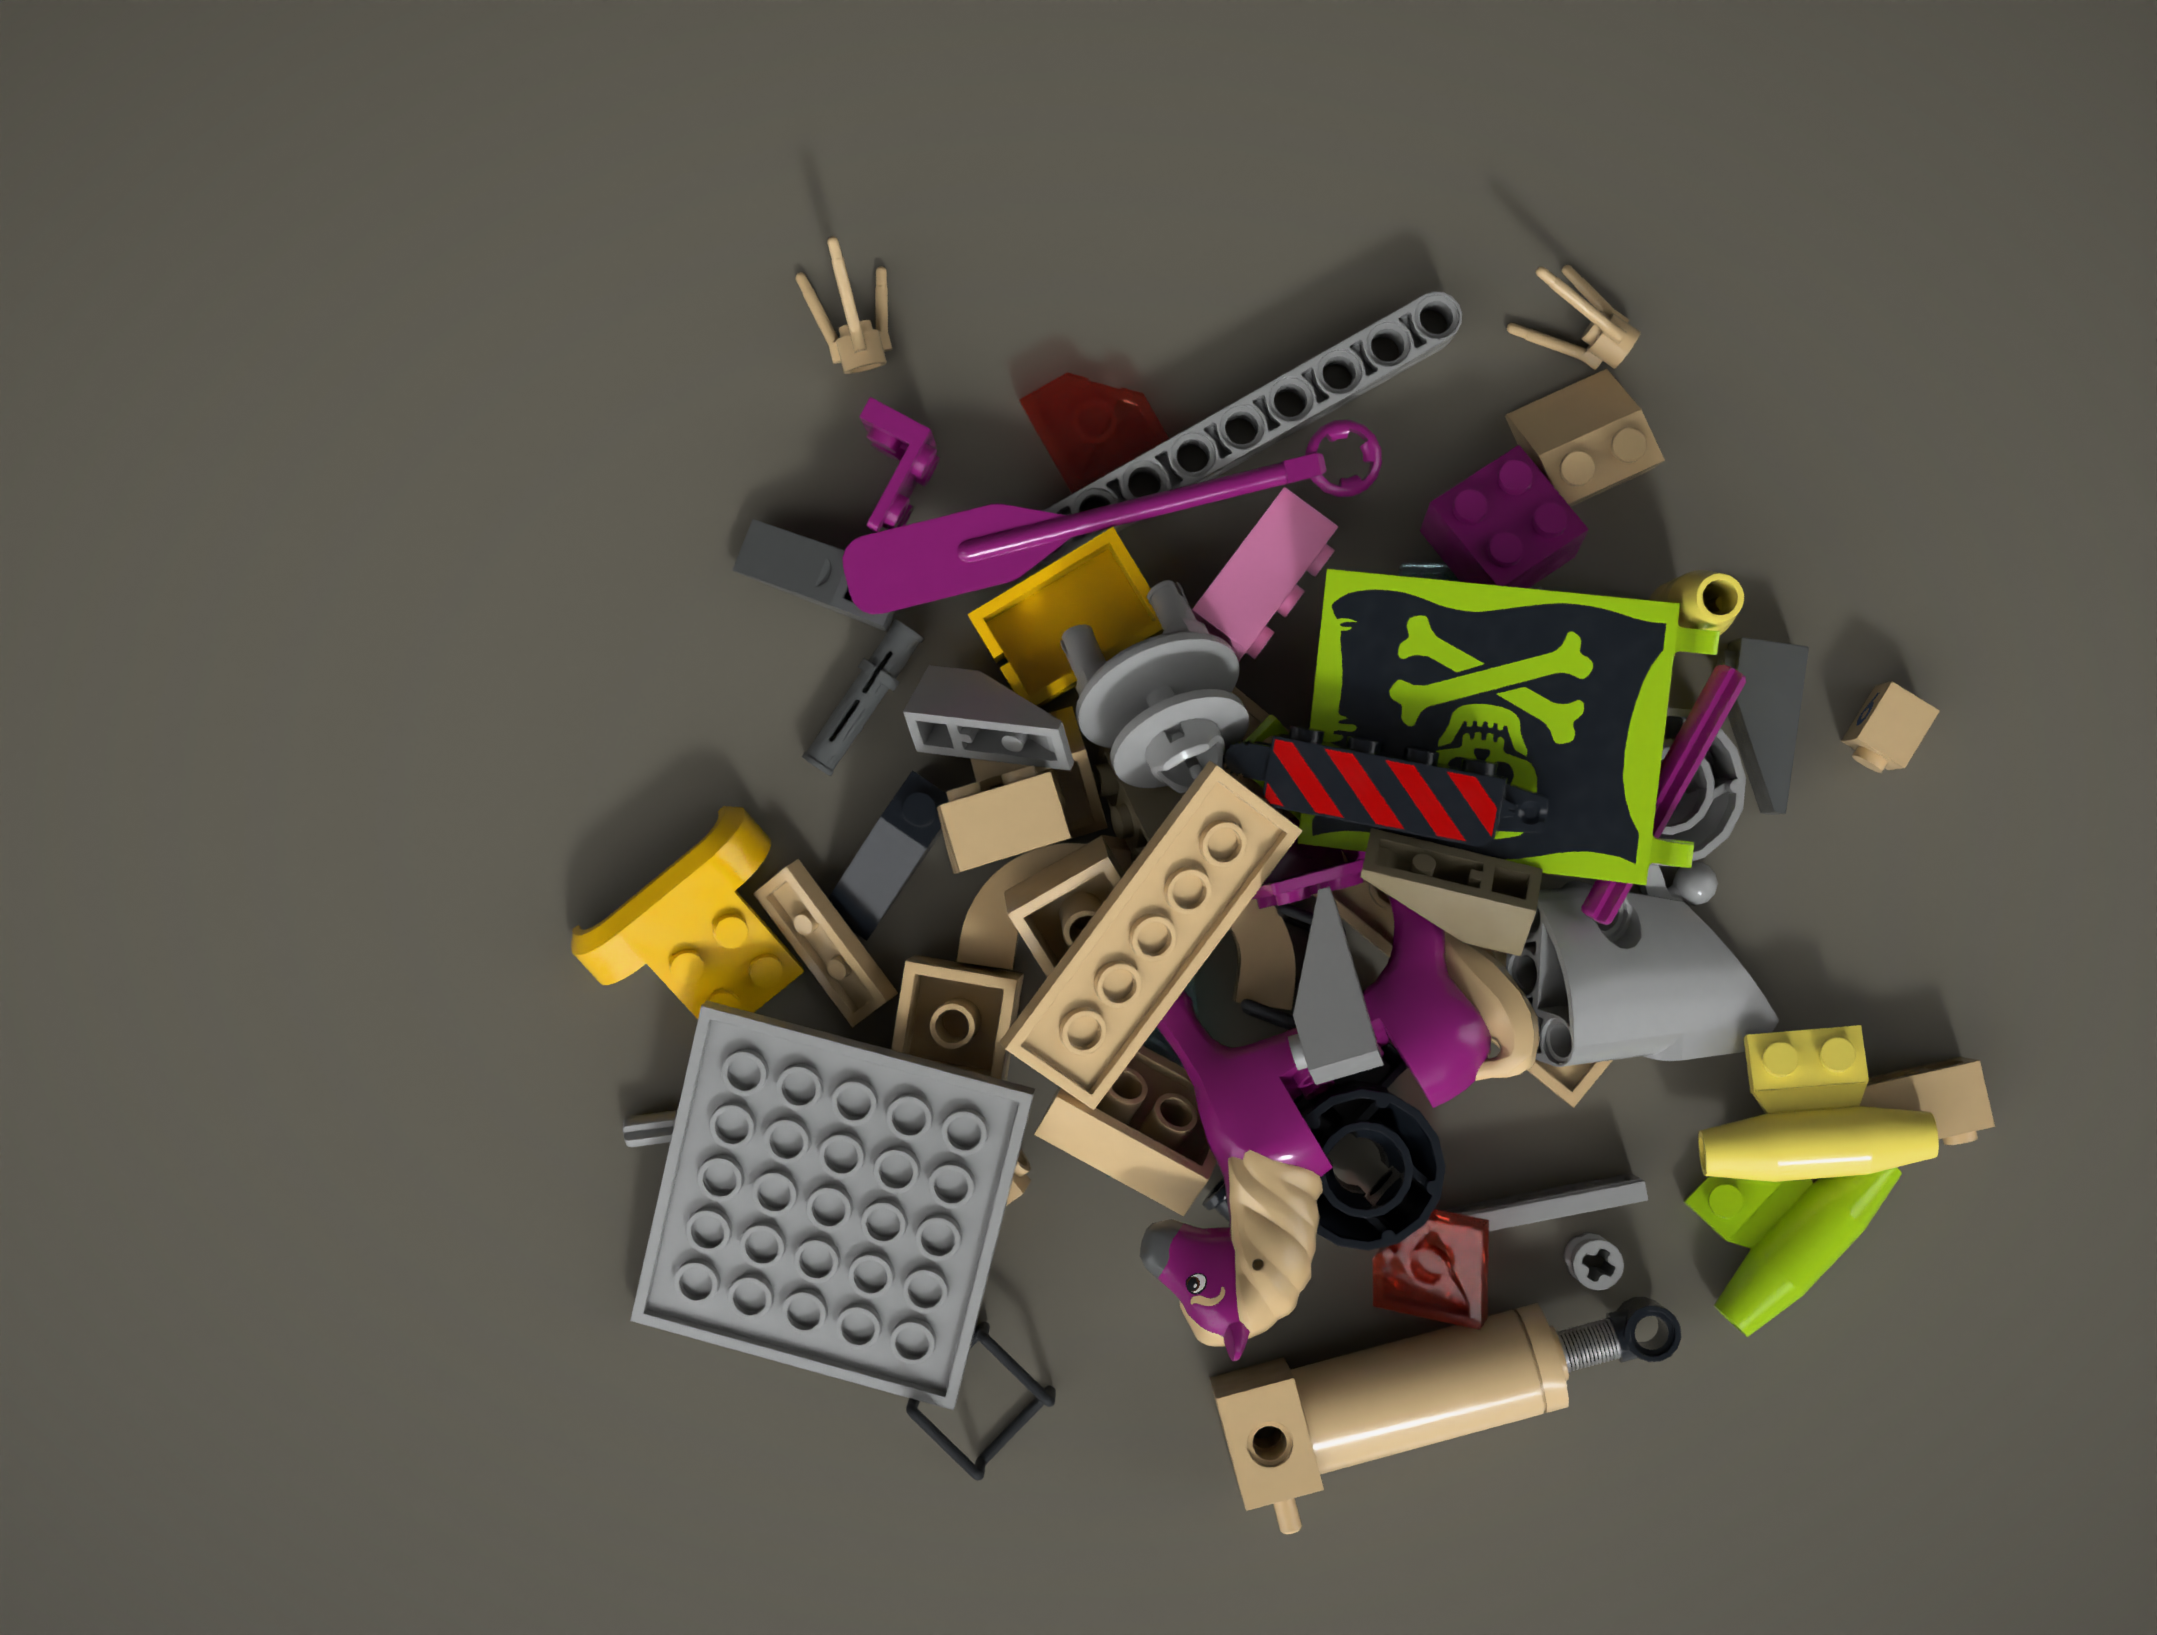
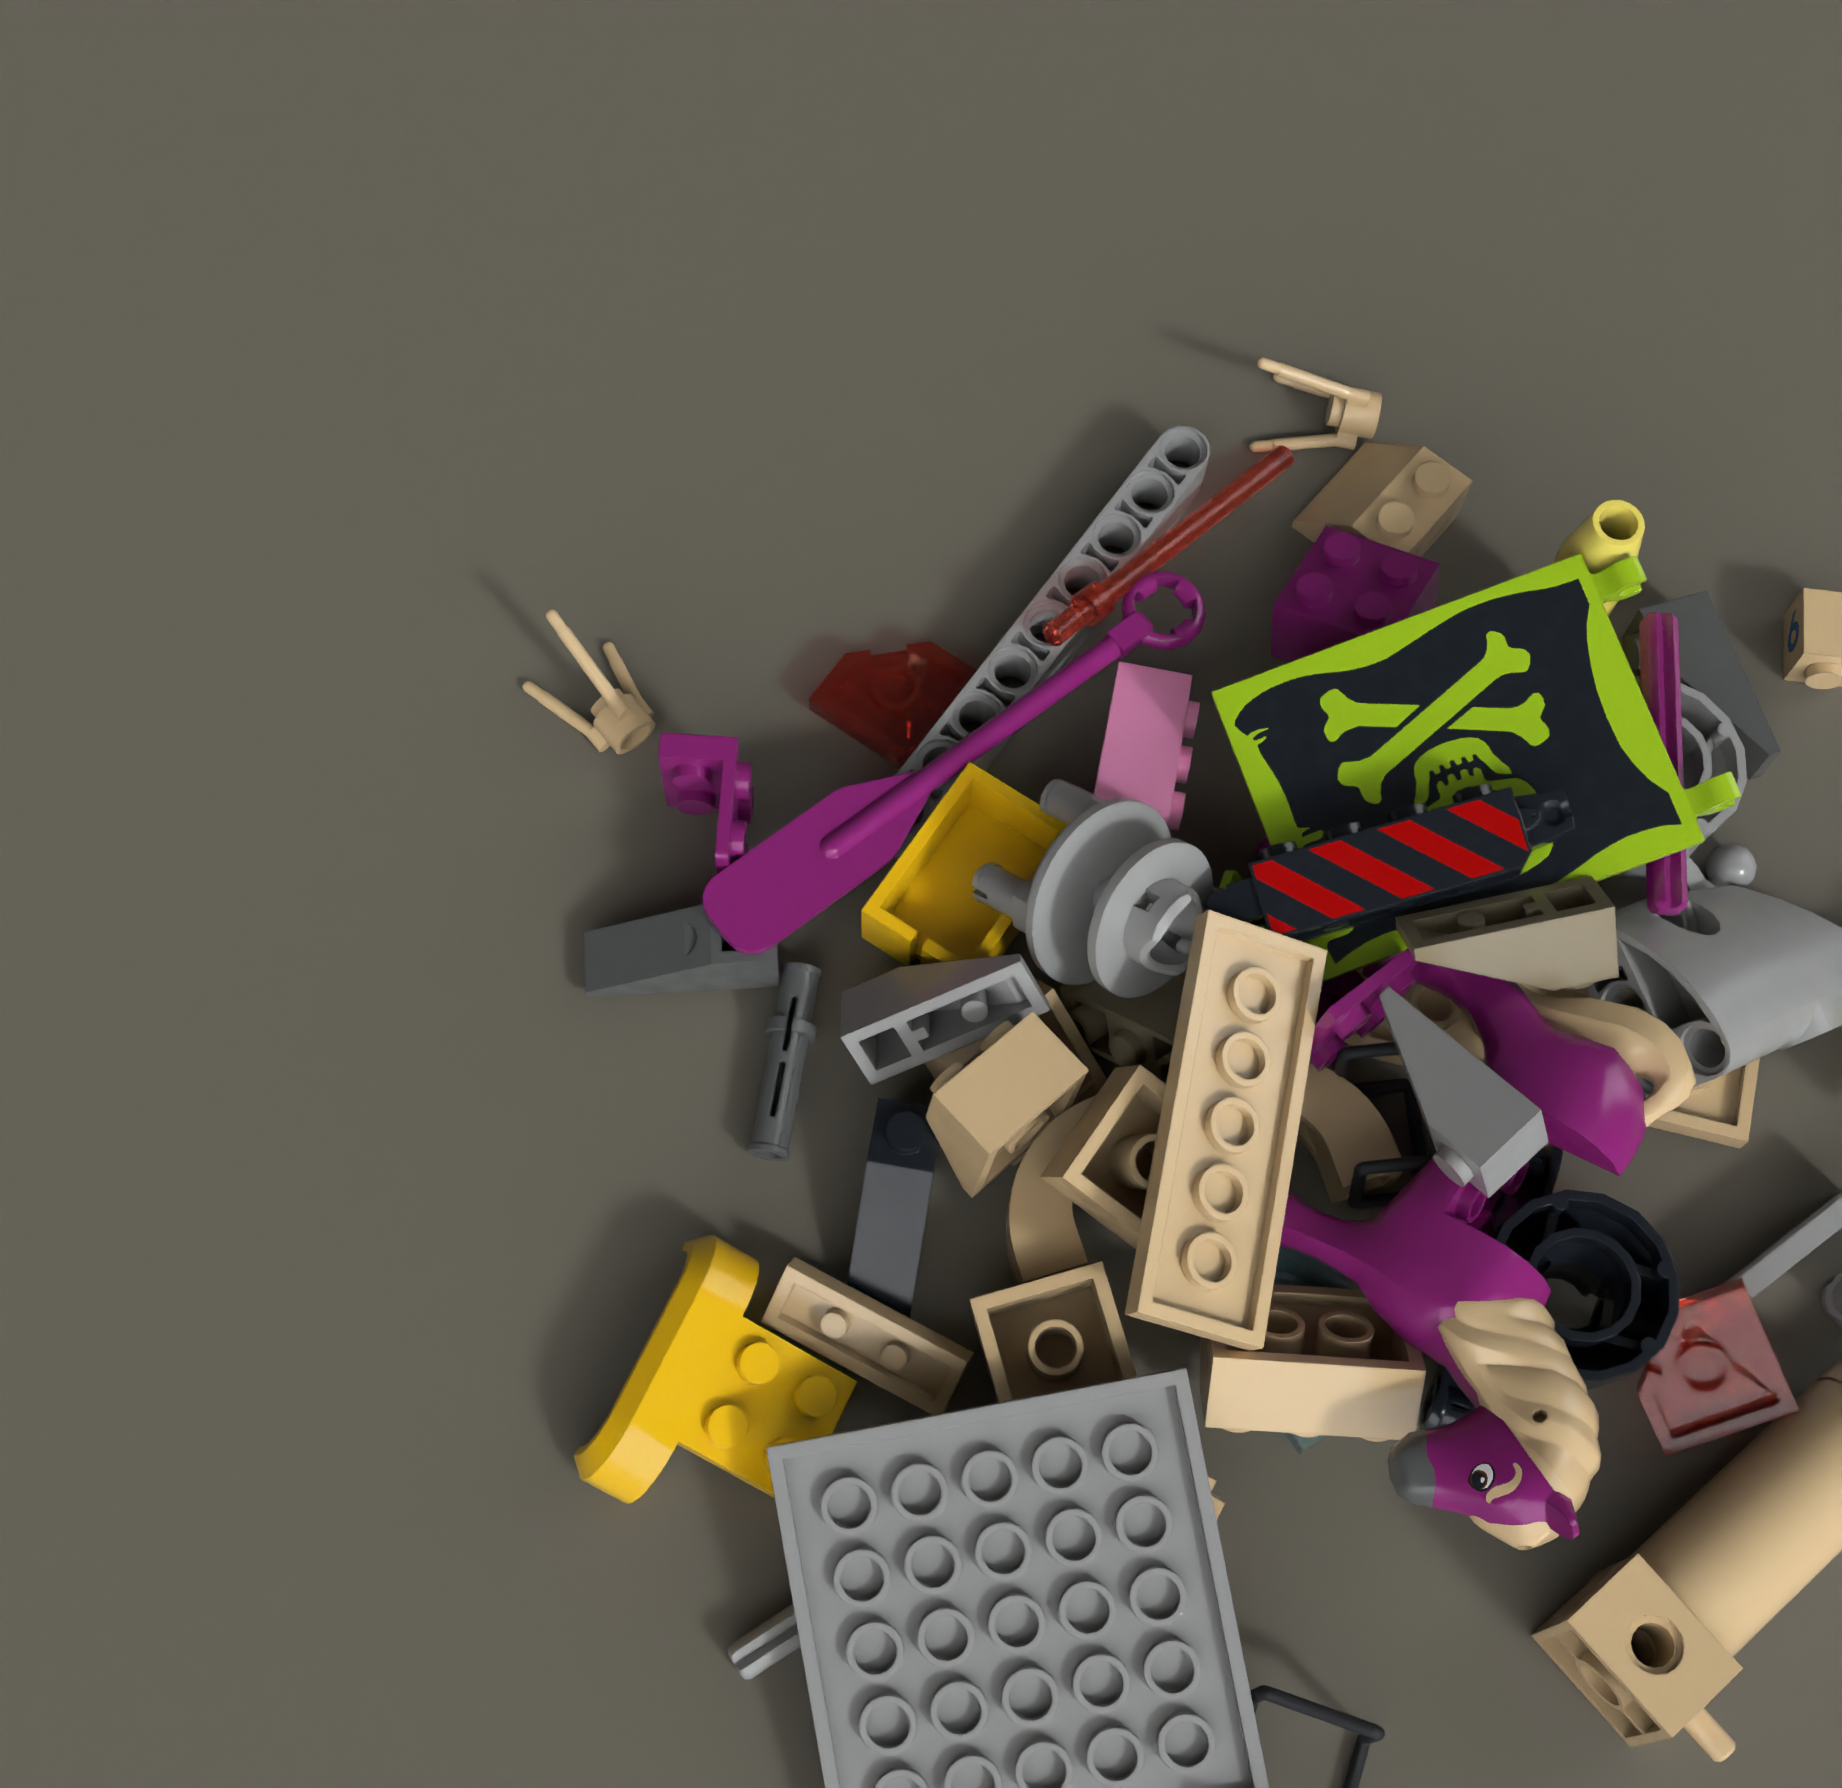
camera: 30 degrees left, 20 degrees down
(1288, 429) = (1098, 599): none -> clear red bar

